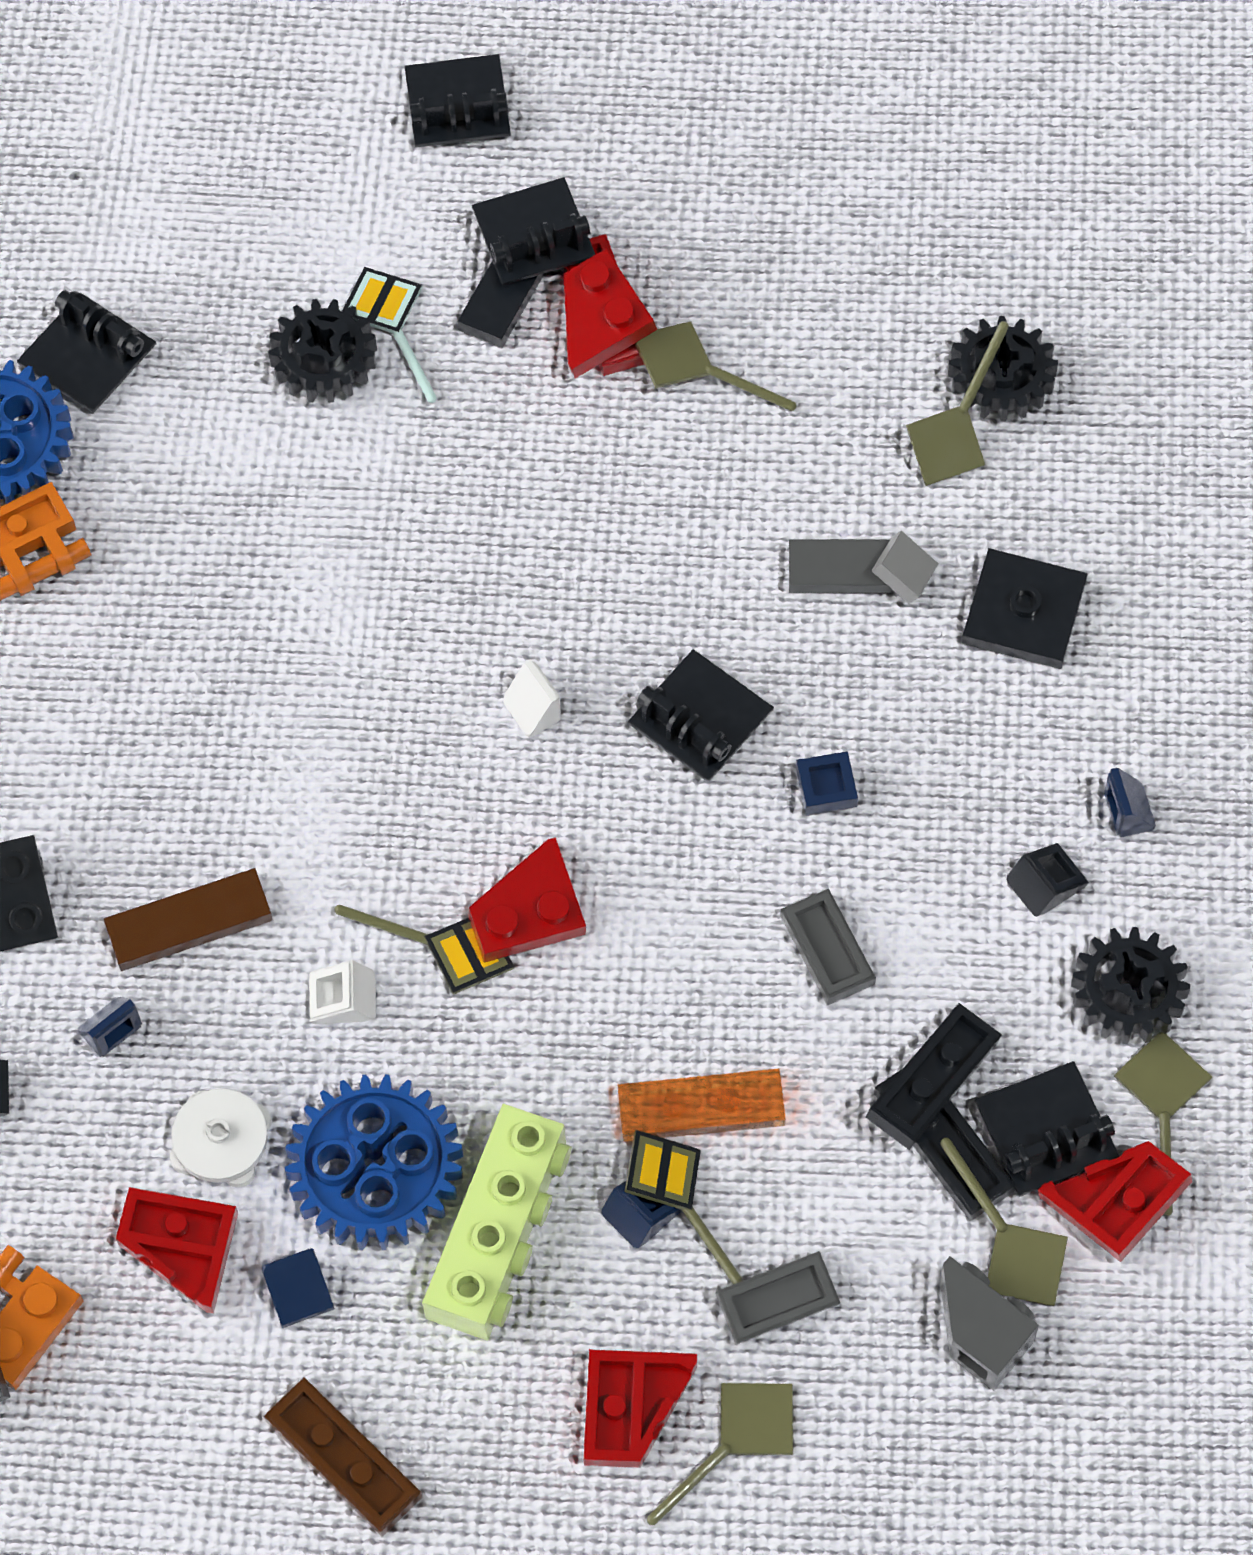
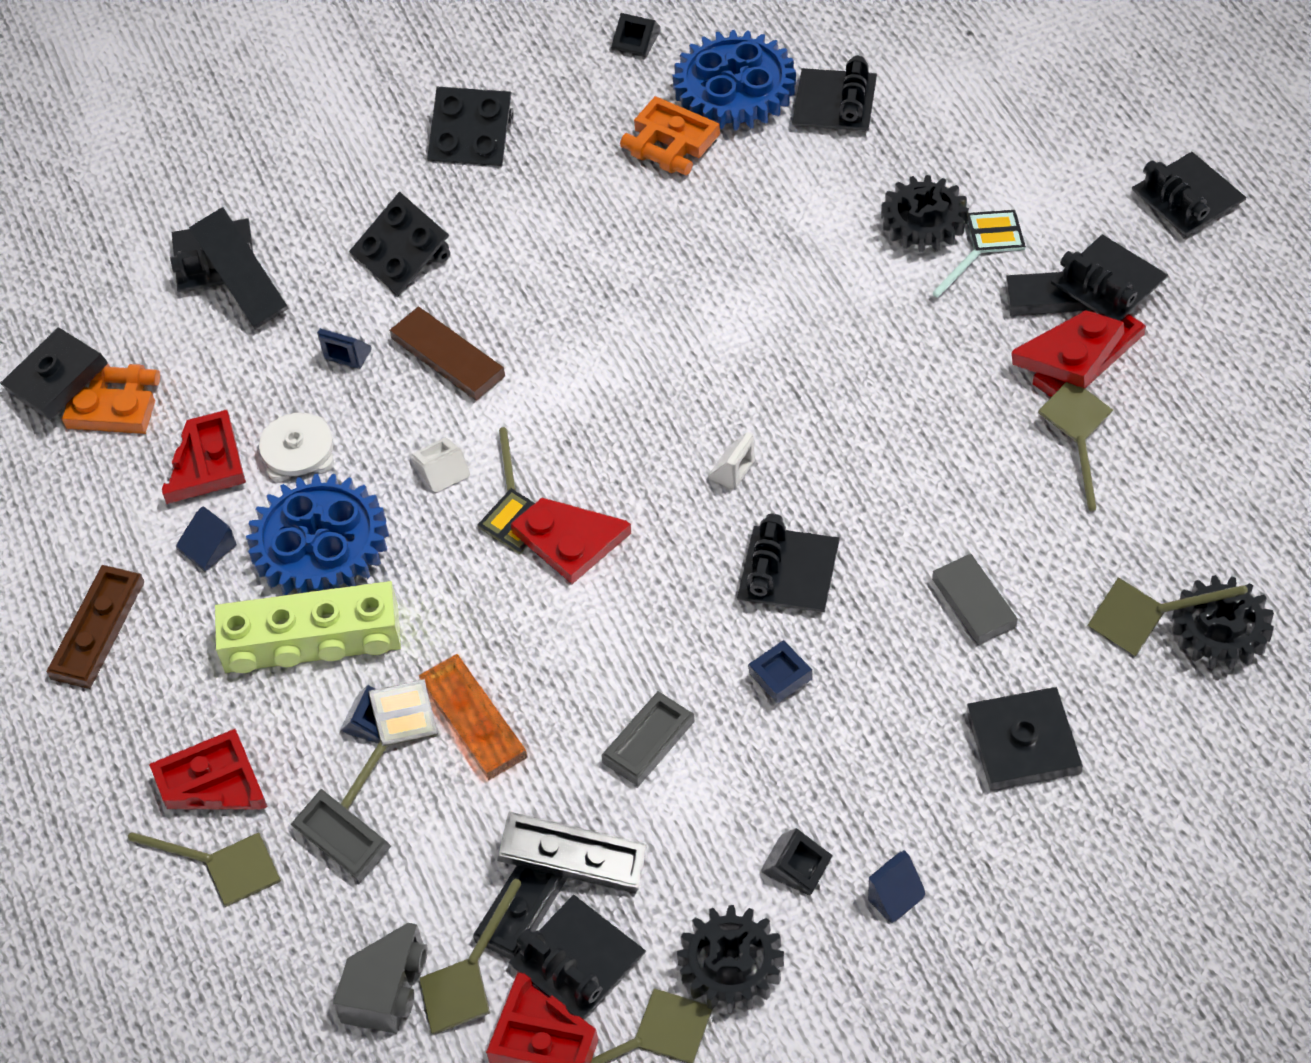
camera: 65 degrees right, 10 degrees down
(905, 567) = (997, 636): light grey tile -> none

